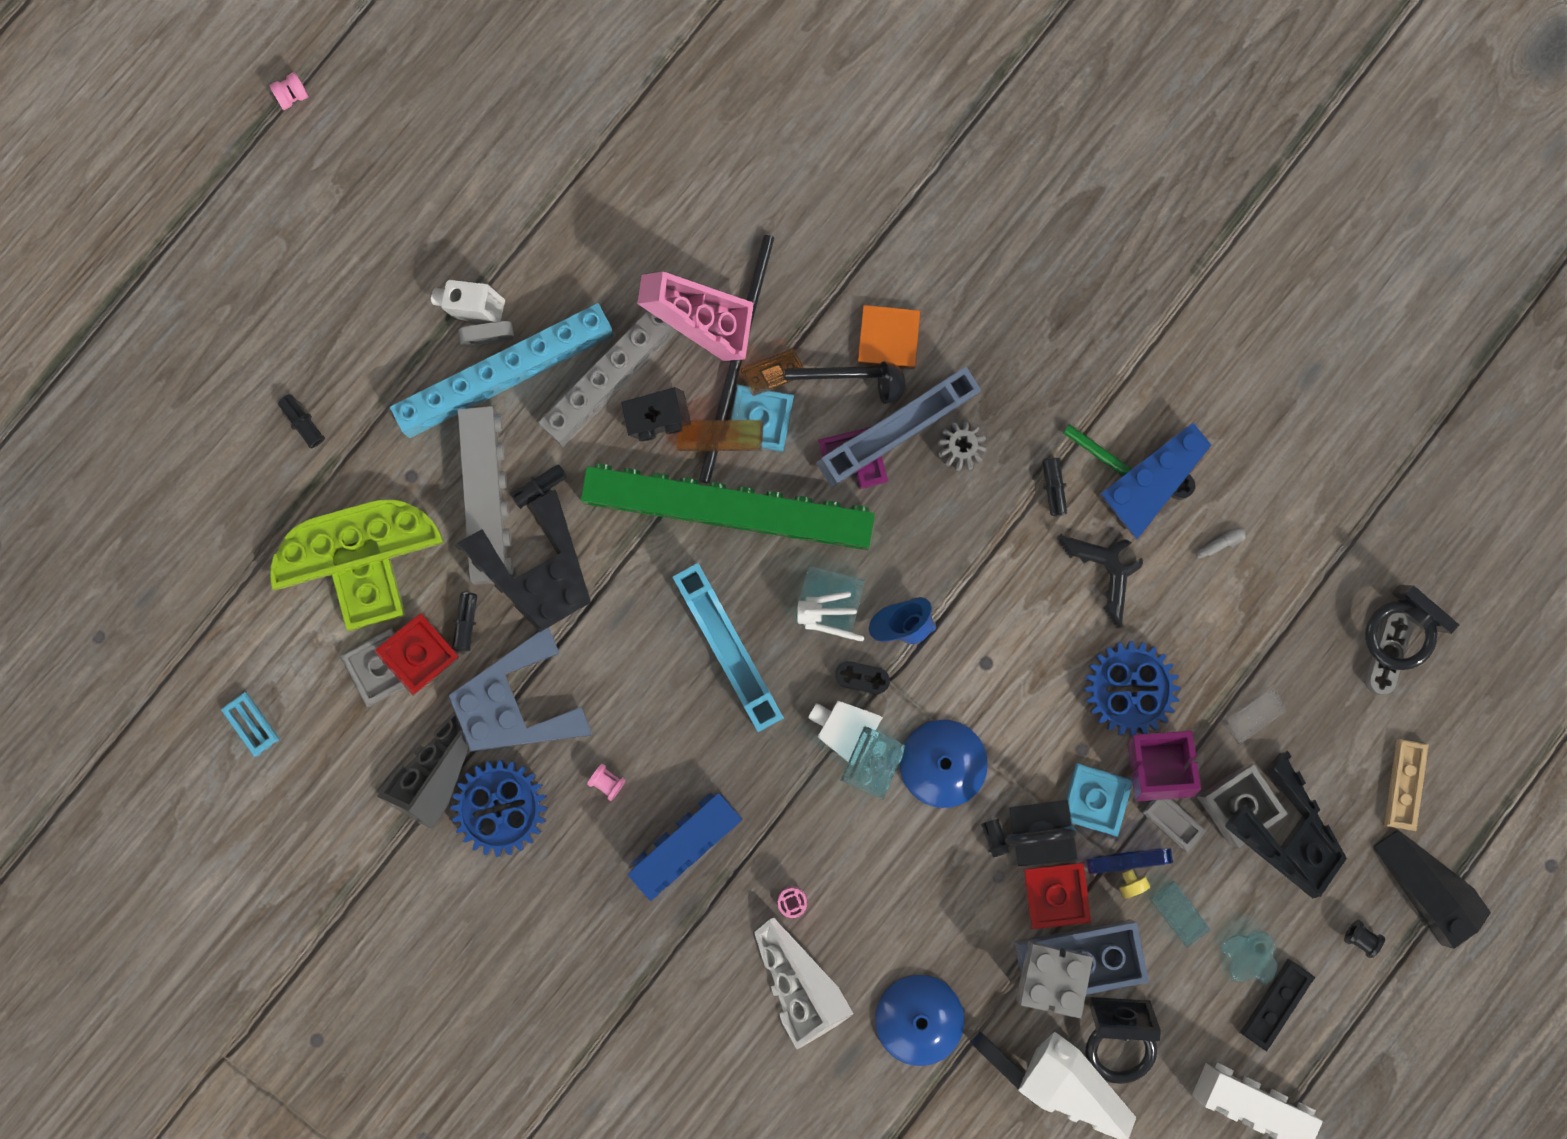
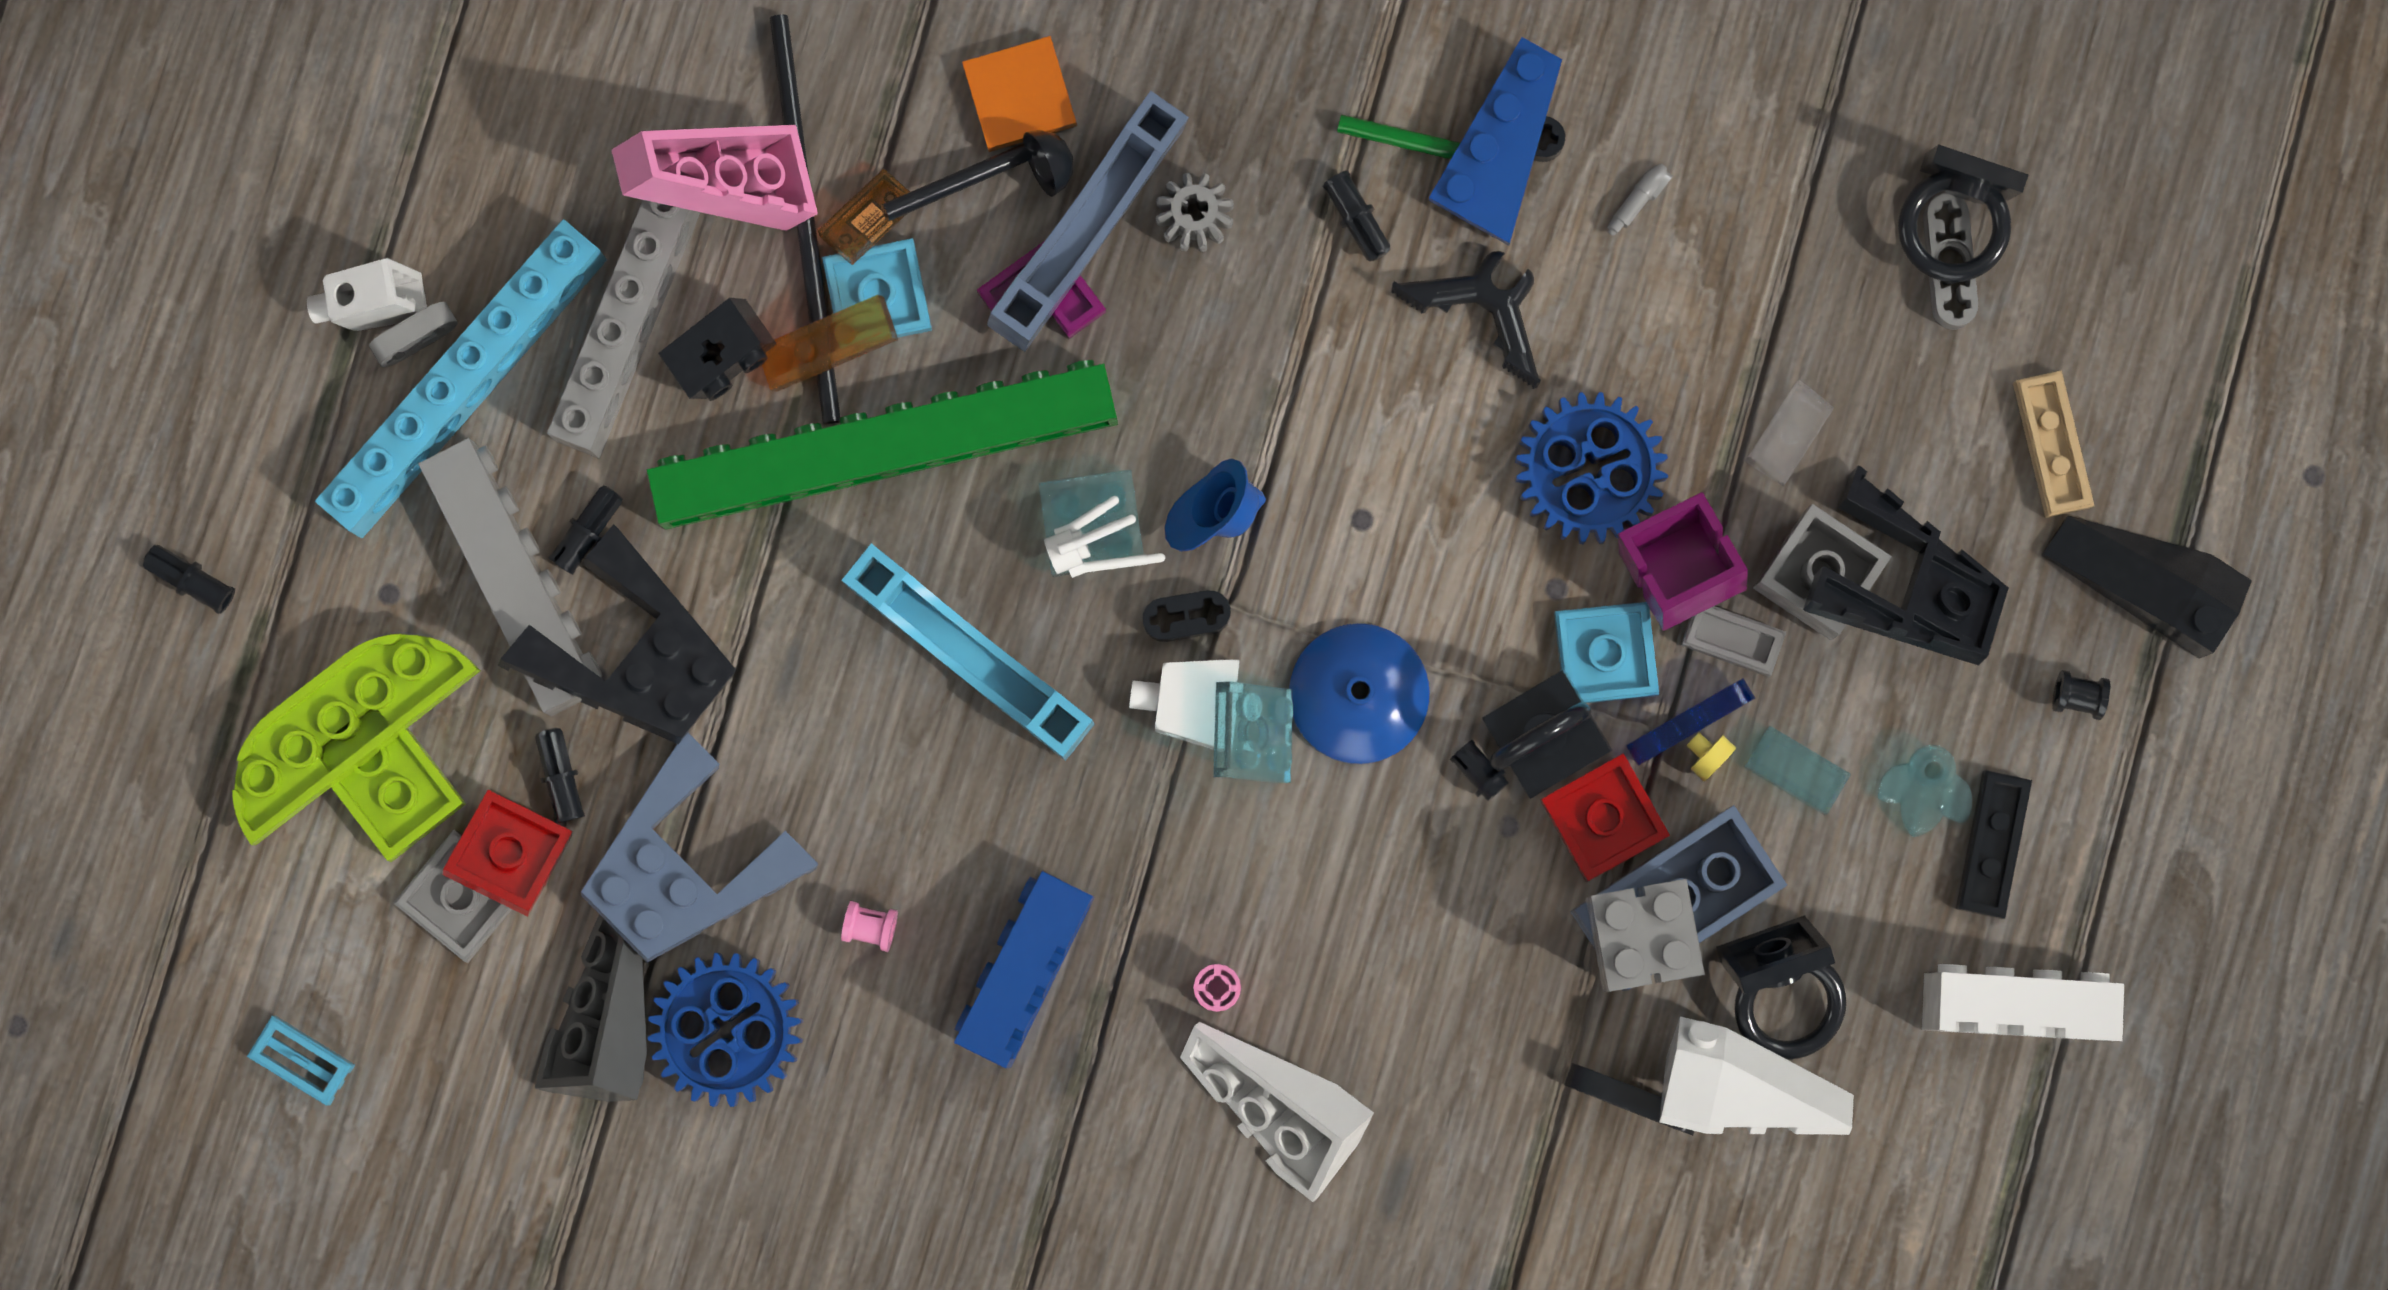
camera: 15 degrees left, 0 degrees up
(914, 999) = (1442, 1077): blue dish -> none

